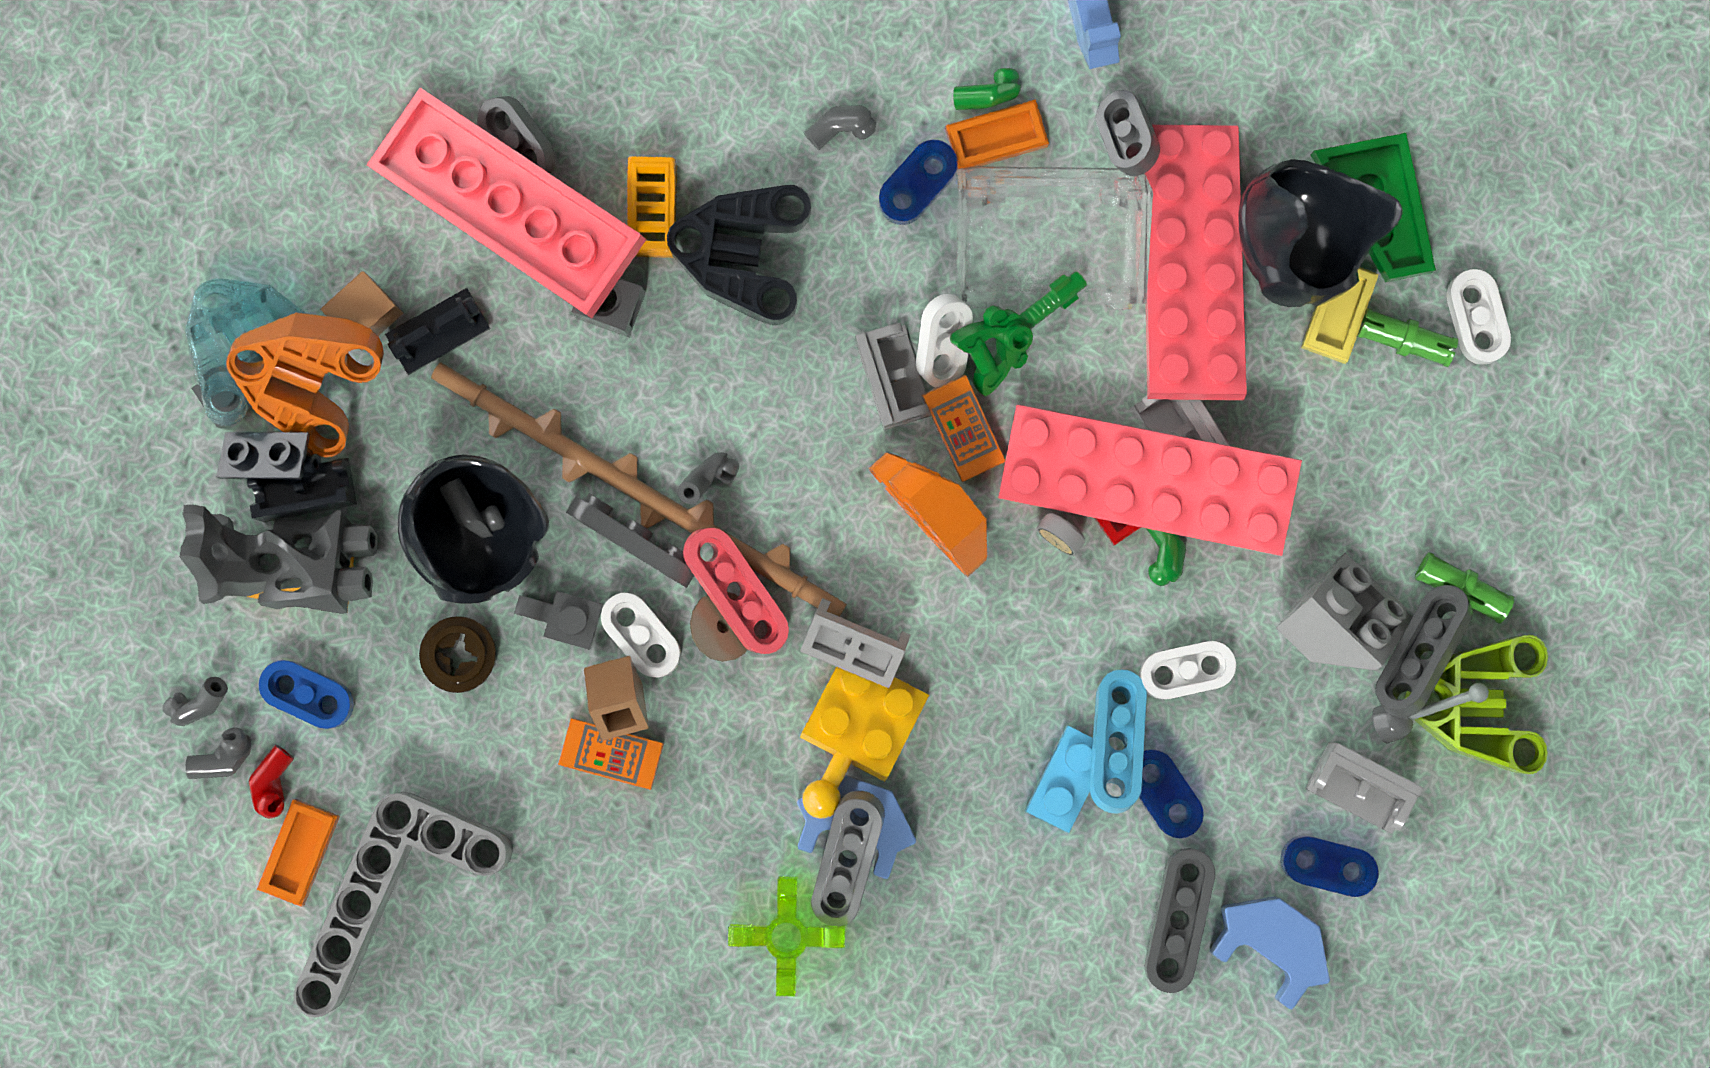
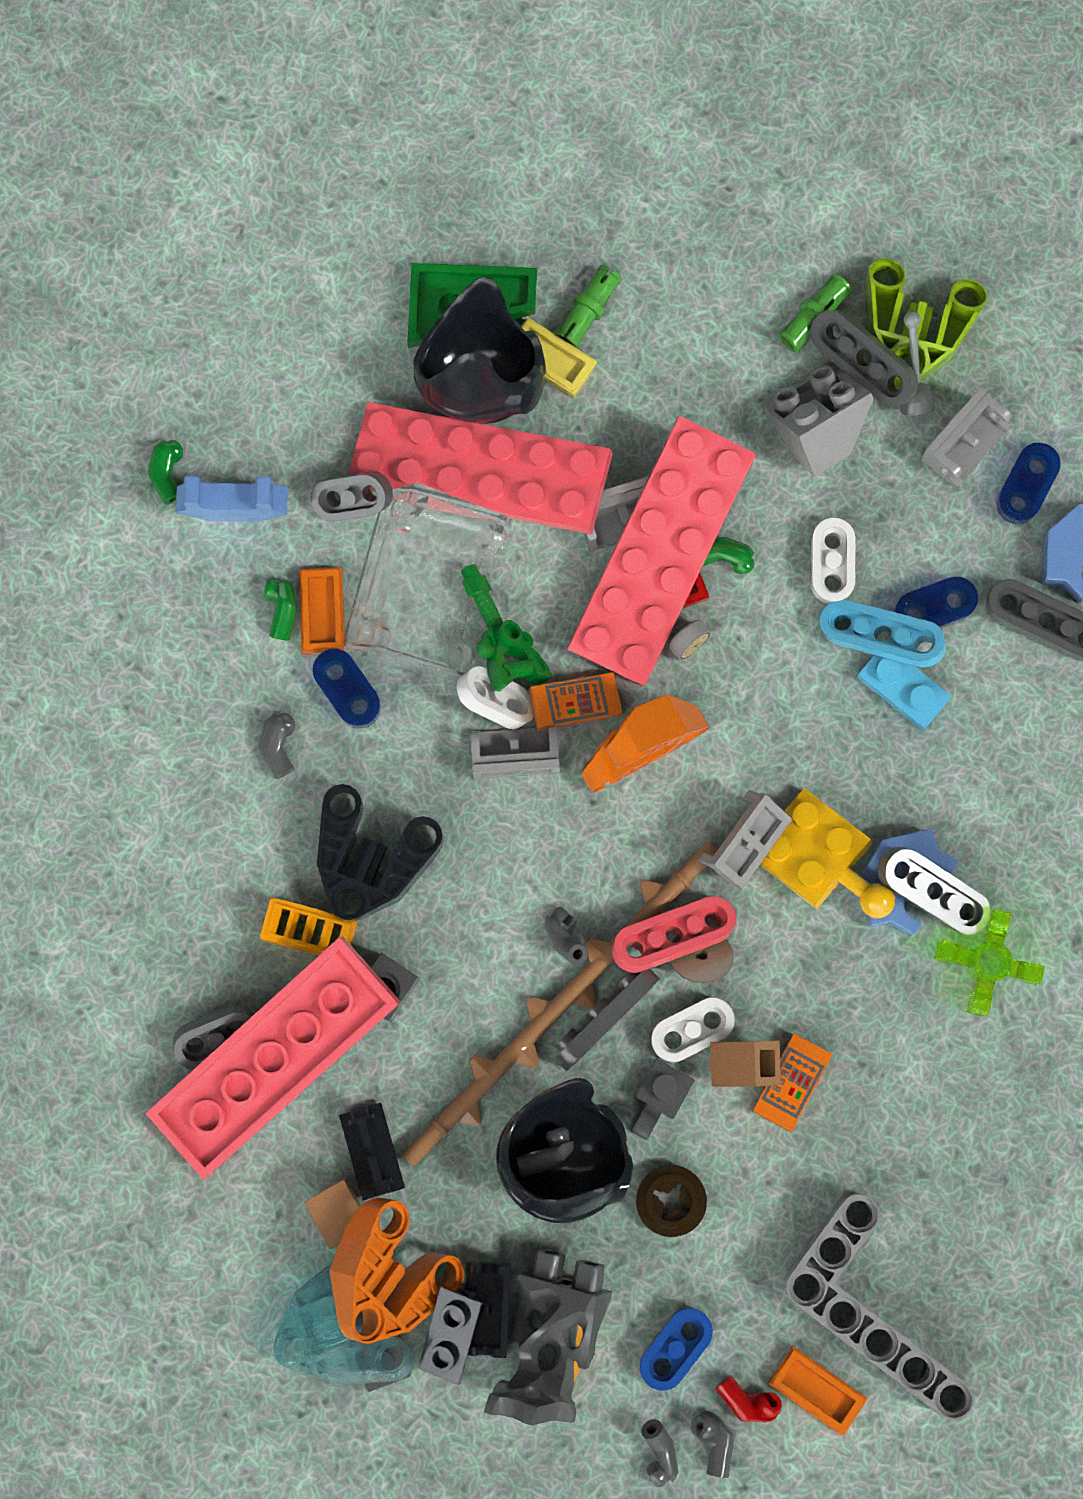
camera: 75 degrees left, 5 degrees down
(1484, 316) = (585, 240): white plate -> none

